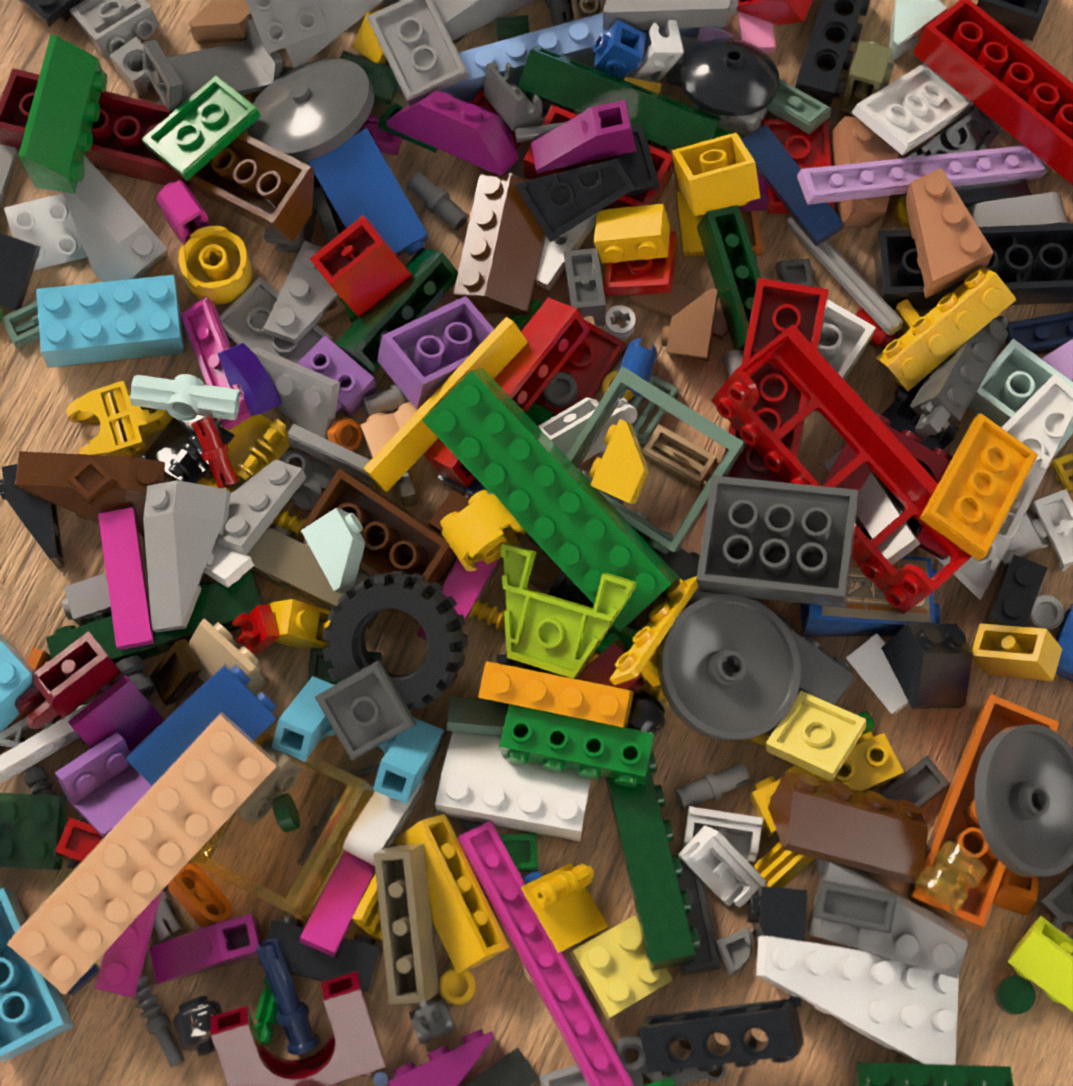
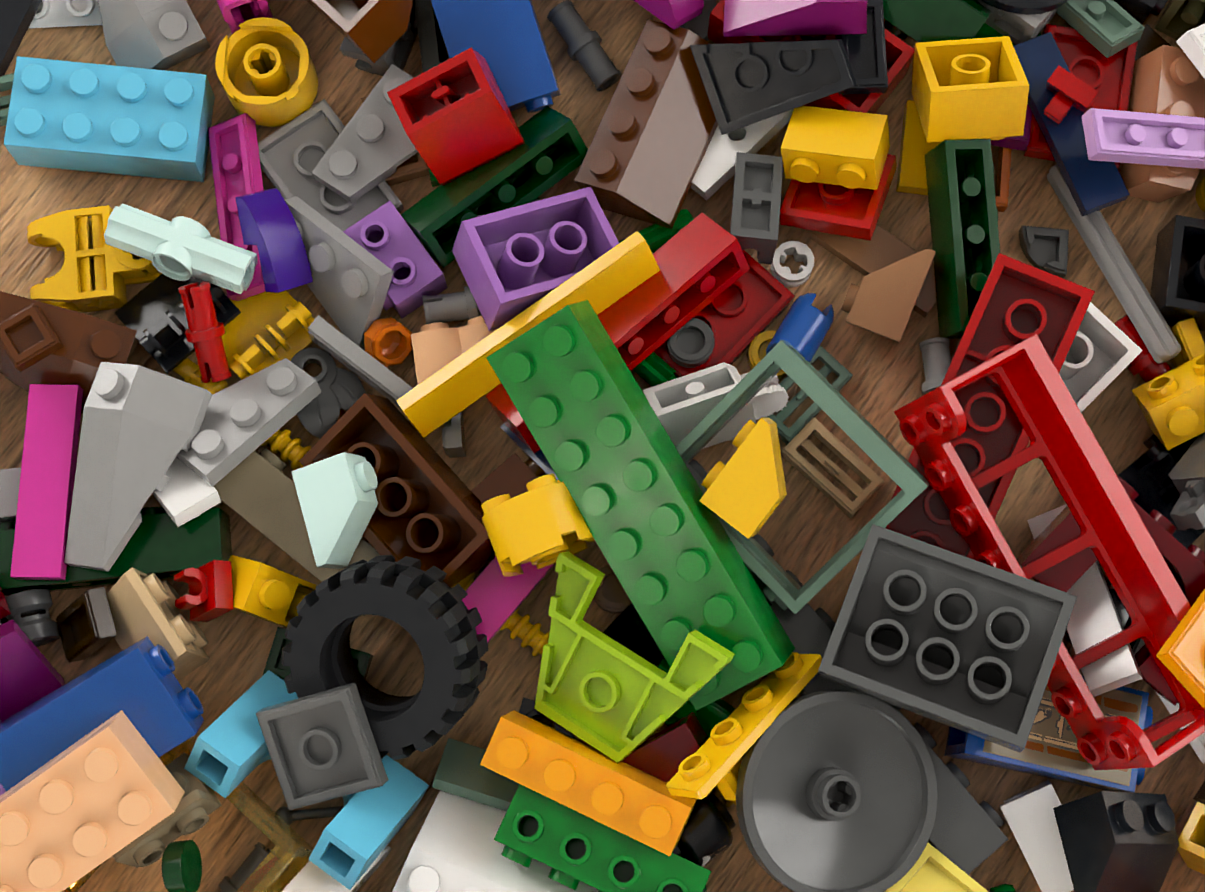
camera: 10 degrees right, 5 degrees up
(786, 162) = (1069, 92): none -> red tile

